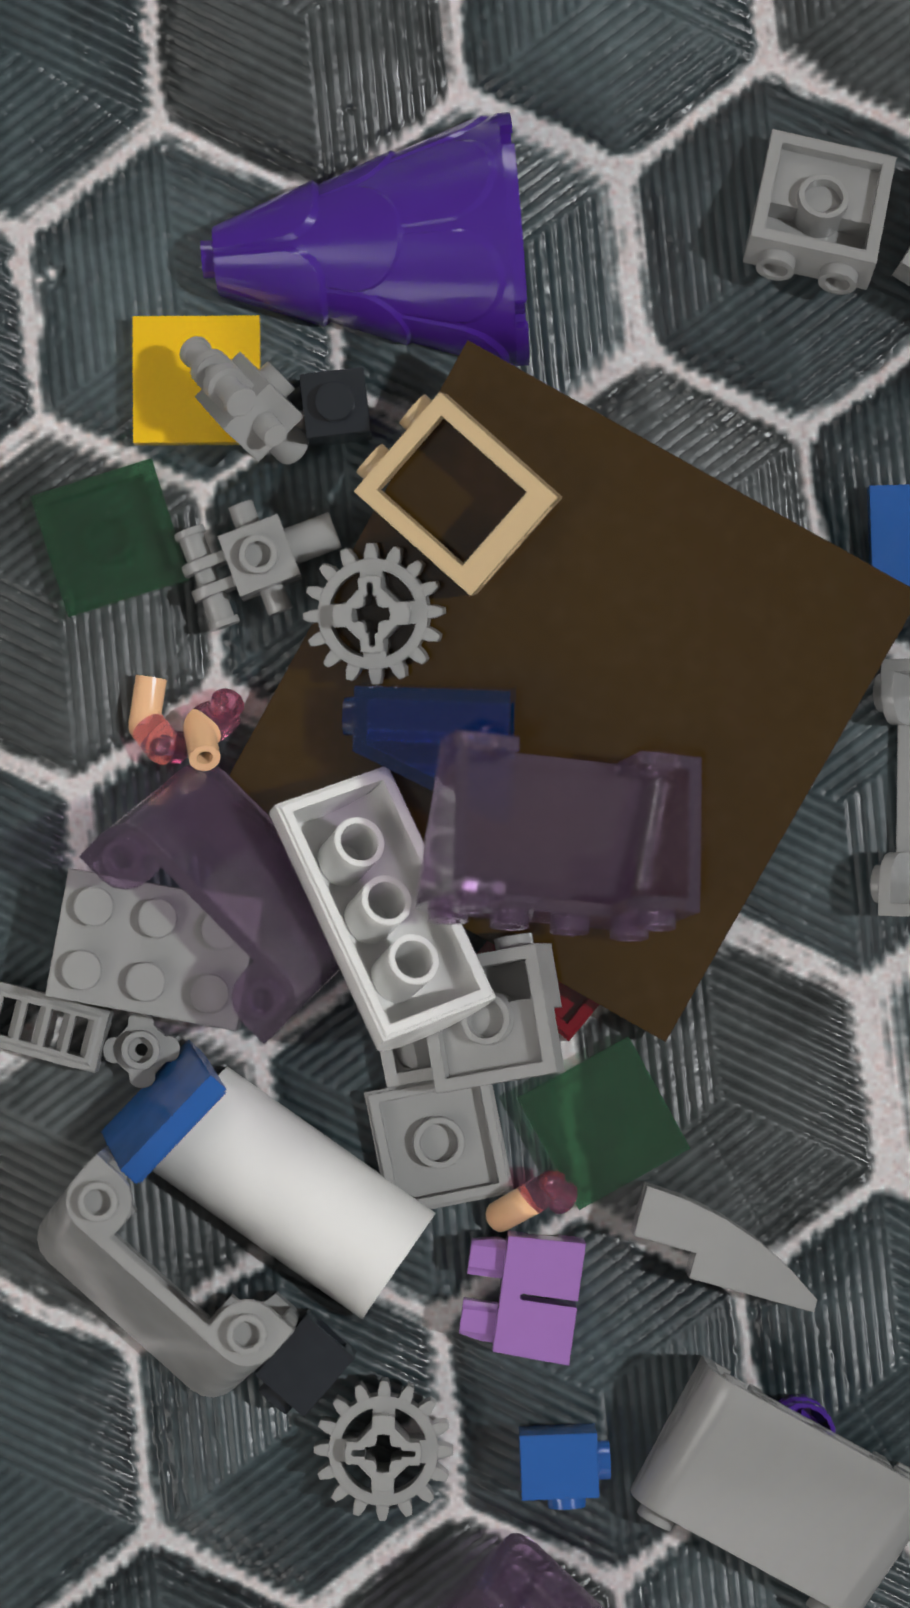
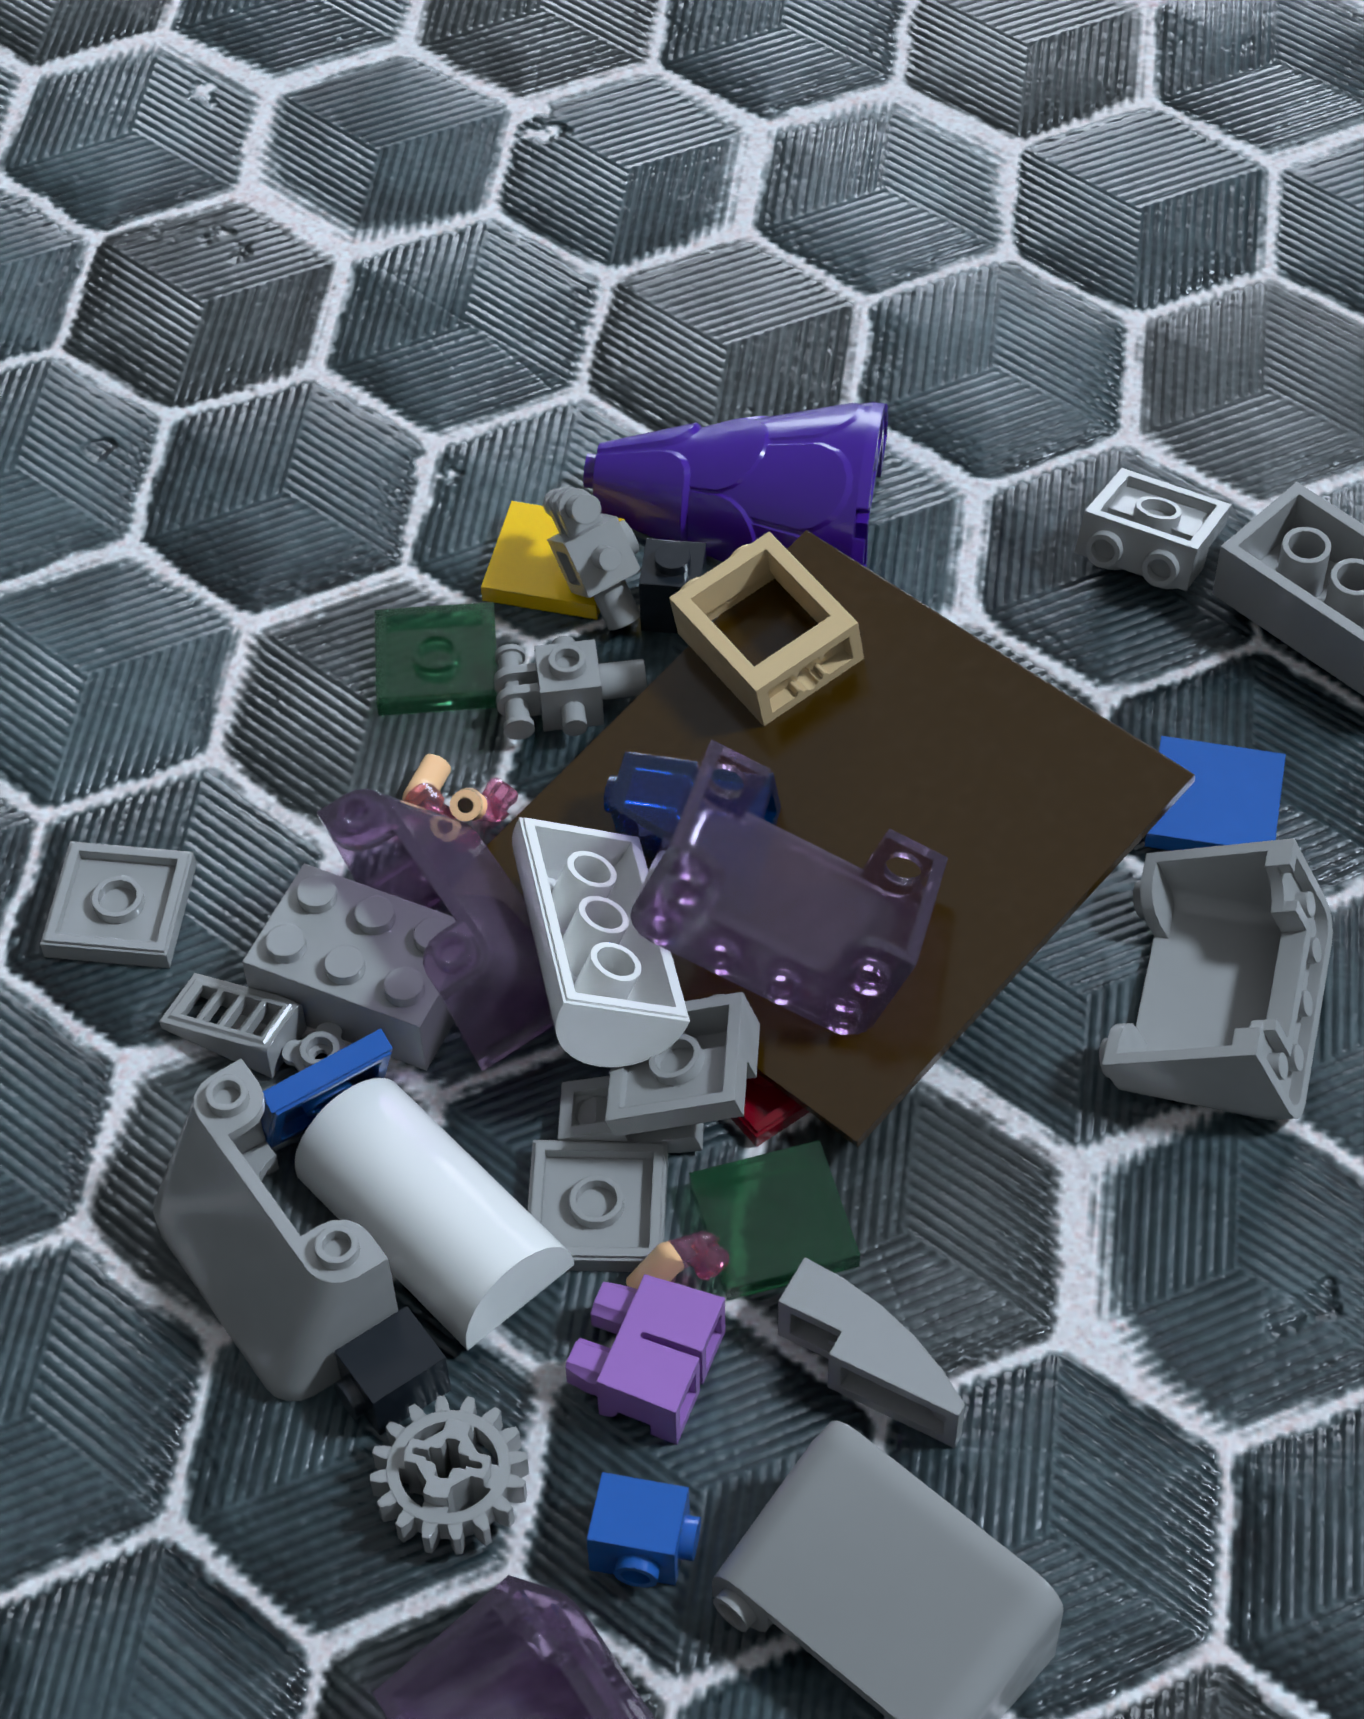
camera: 15 degrees right, 35 degrees down
(402, 612) = (662, 708): light grey gear -> none

